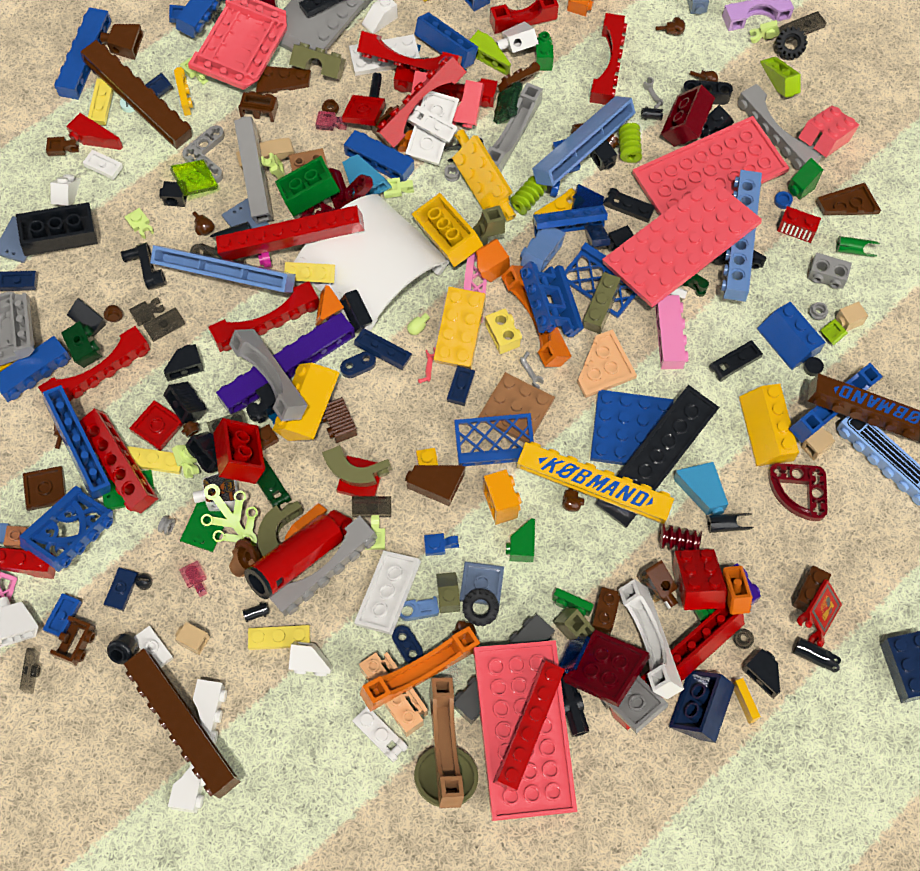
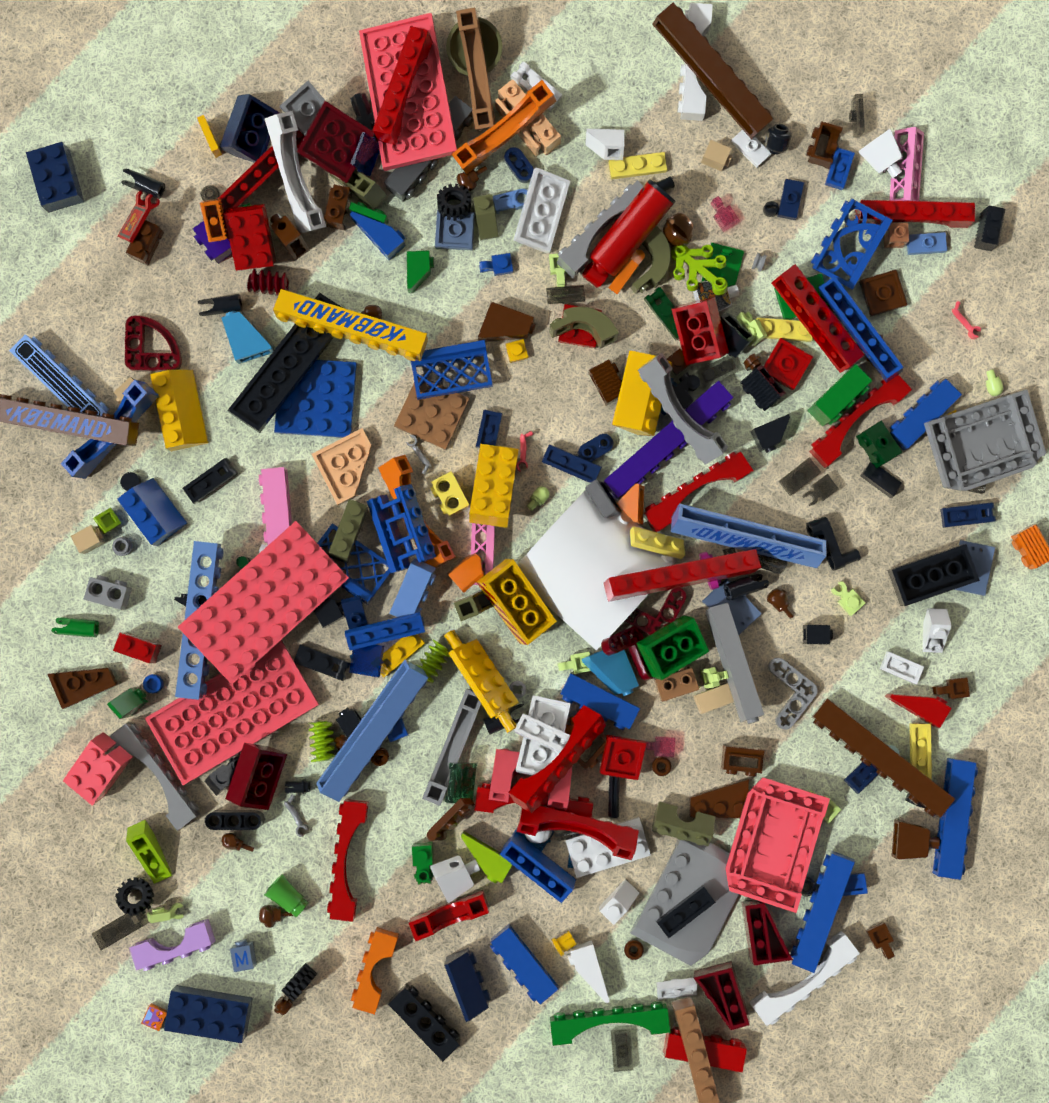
camera: 175 degrees right, 20 degrees up
(111, 385) = (840, 396): none -> green brick
(113, 313) = (854, 484): reddish brown plate -> none
(183, 90) = (830, 774): yellow plate -> none
(193, 177) = (798, 651): clear neon green tile -> none
(501, 496) = (442, 310): light orange brick -> none
(556, 575) = (381, 235): none -> blue slope
(664, 38) = (286, 896): none -> bright green plant
(765, 672) = (192, 164): black slope -> none

